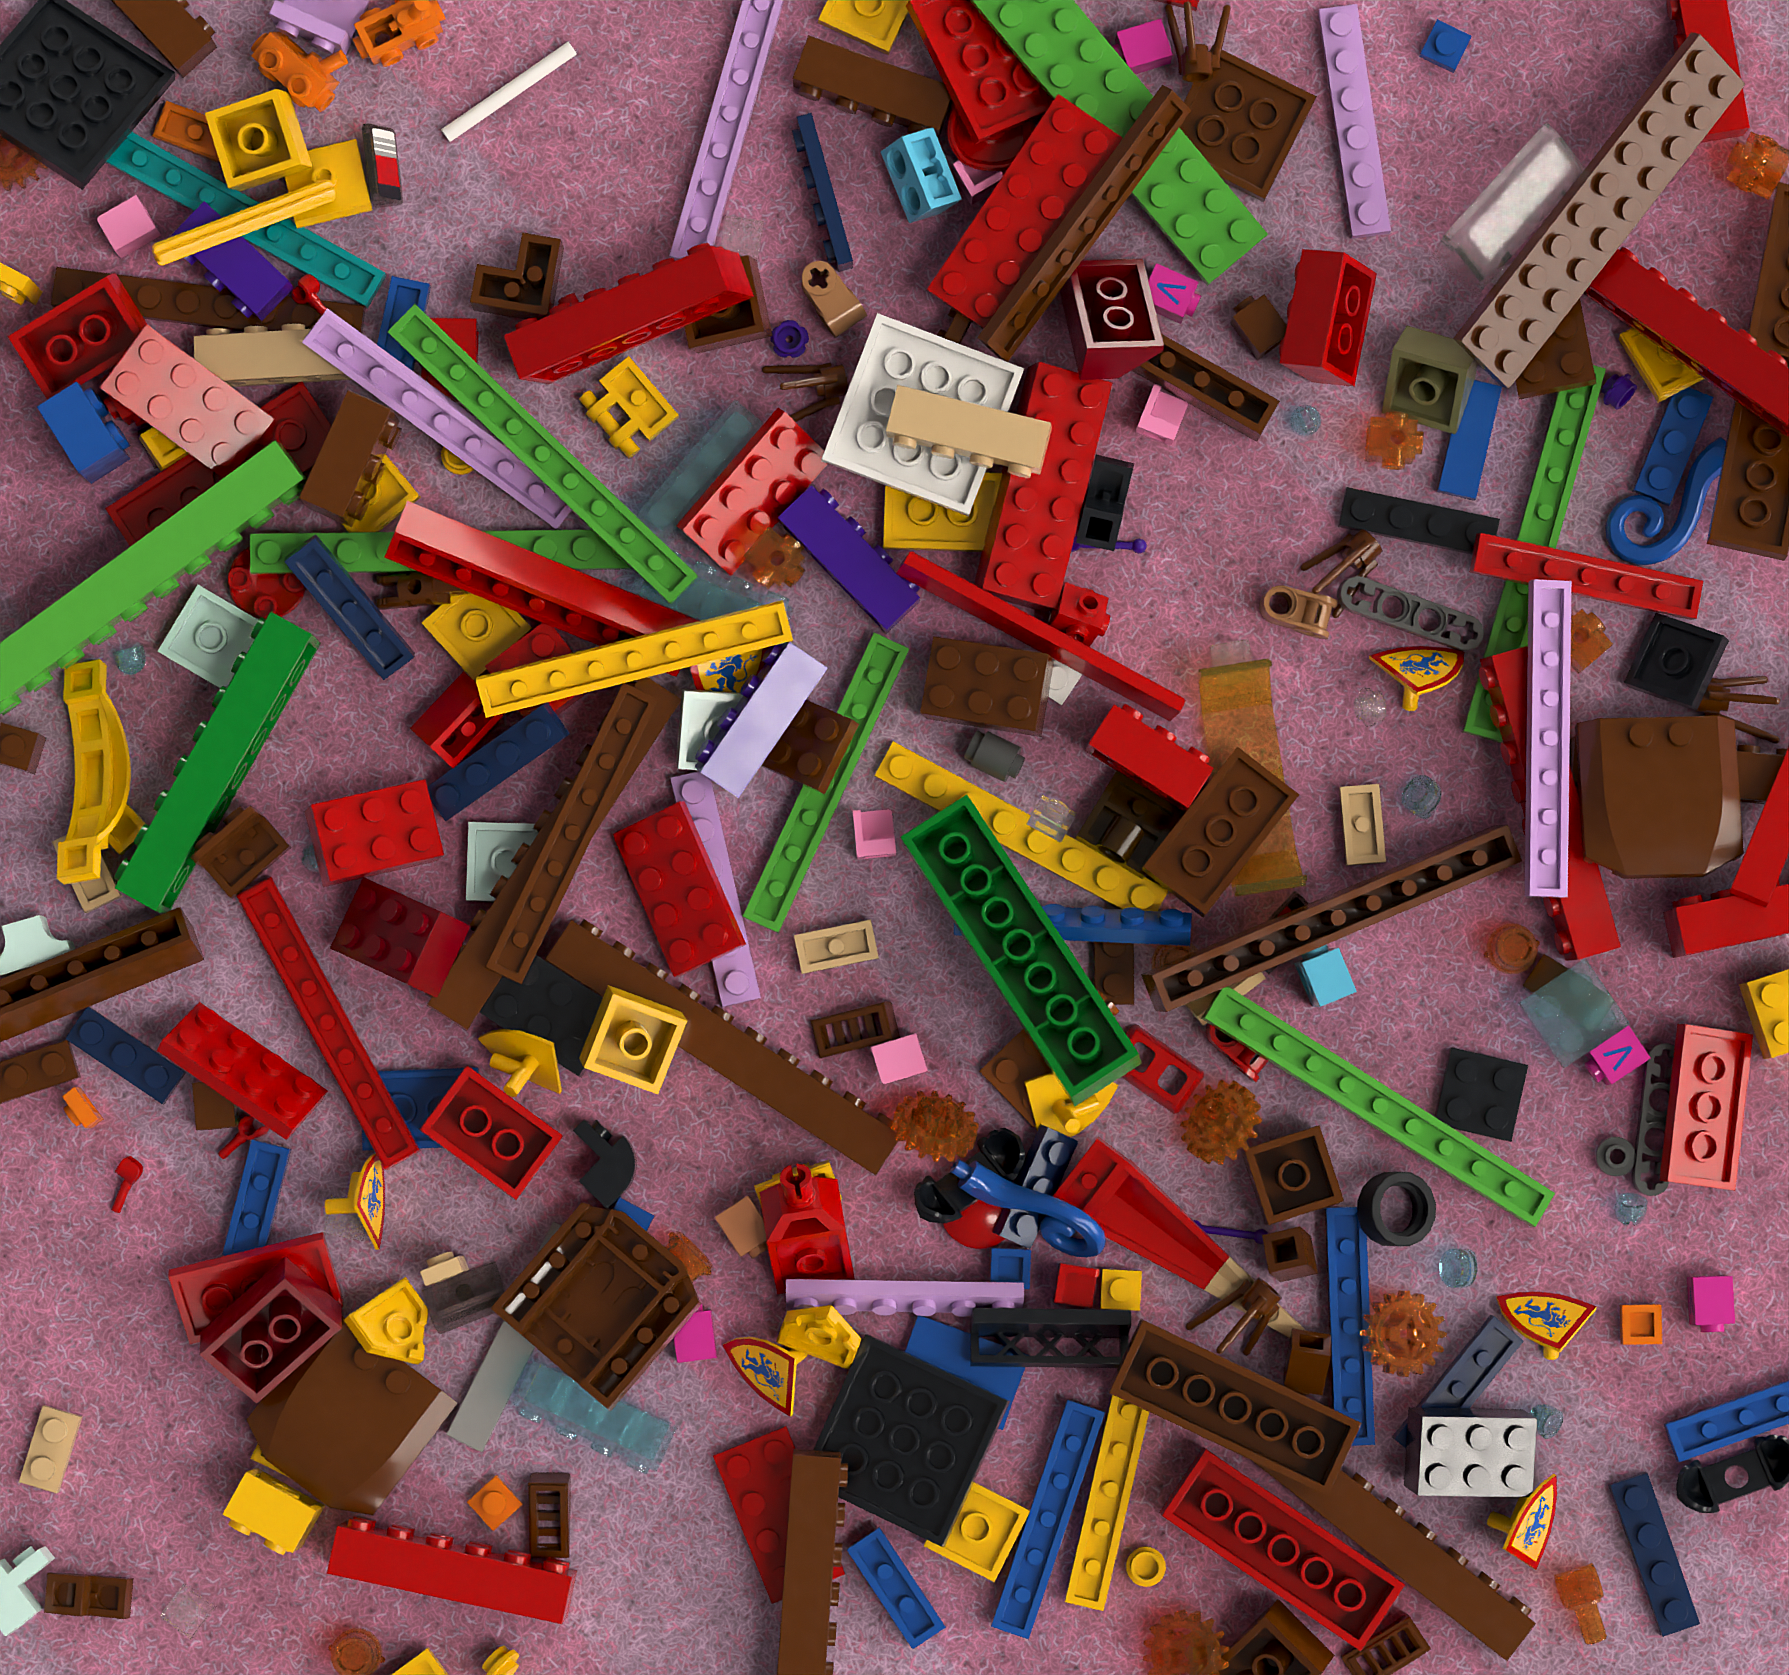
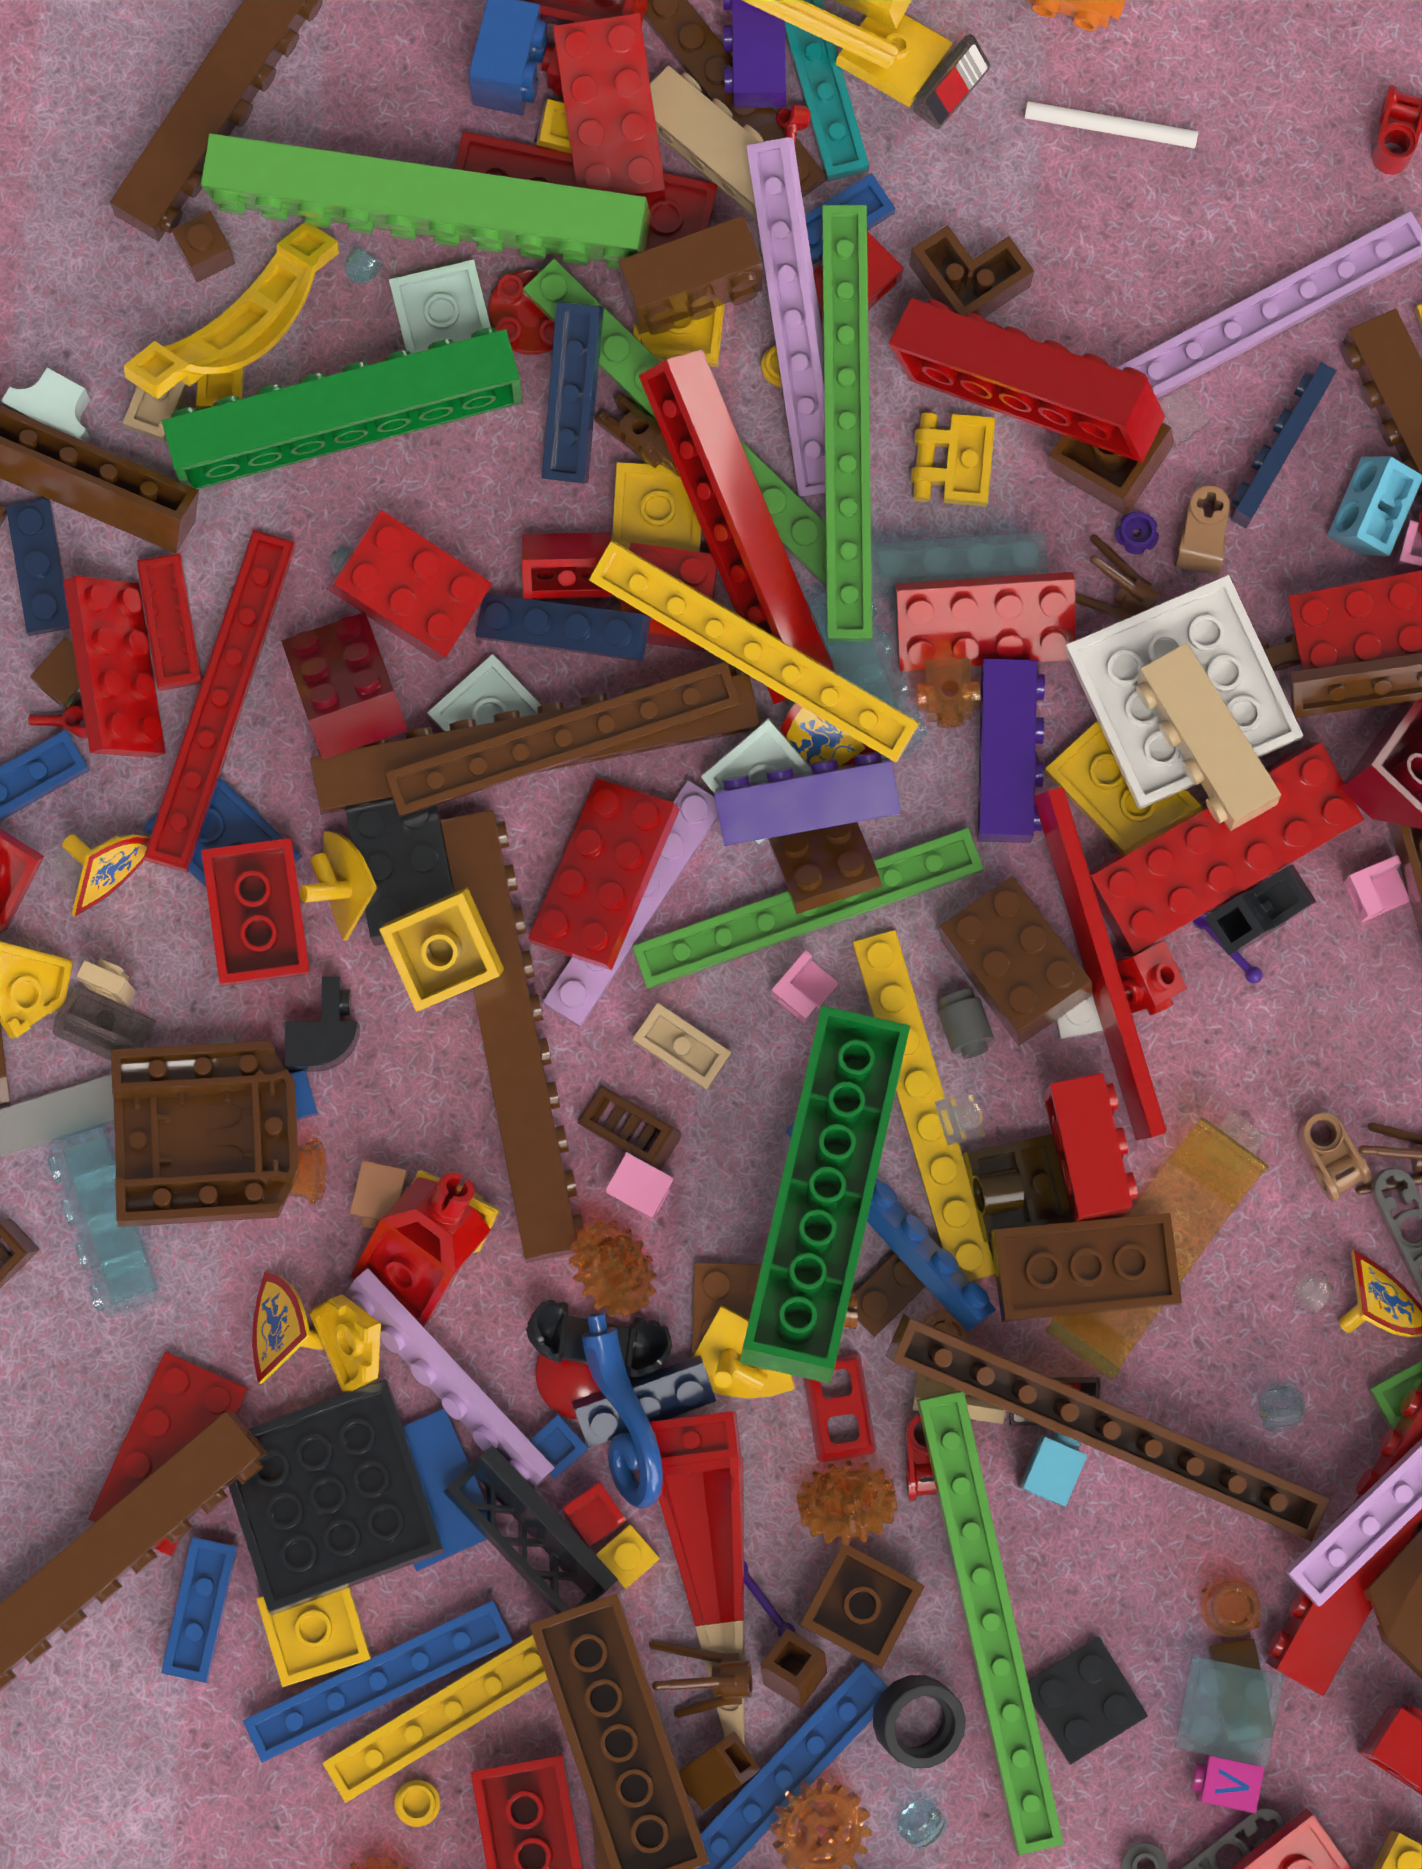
camera: 45 degrees right, 5 degrees down
(240, 850) = (292, 493): reddish brown bracket -> none
(244, 1006) = (169, 622): none -> red plate
(696, 1338) = (250, 1242): dark pink brick -> none
(1362, 824) = (1209, 1381): tan plate -> none

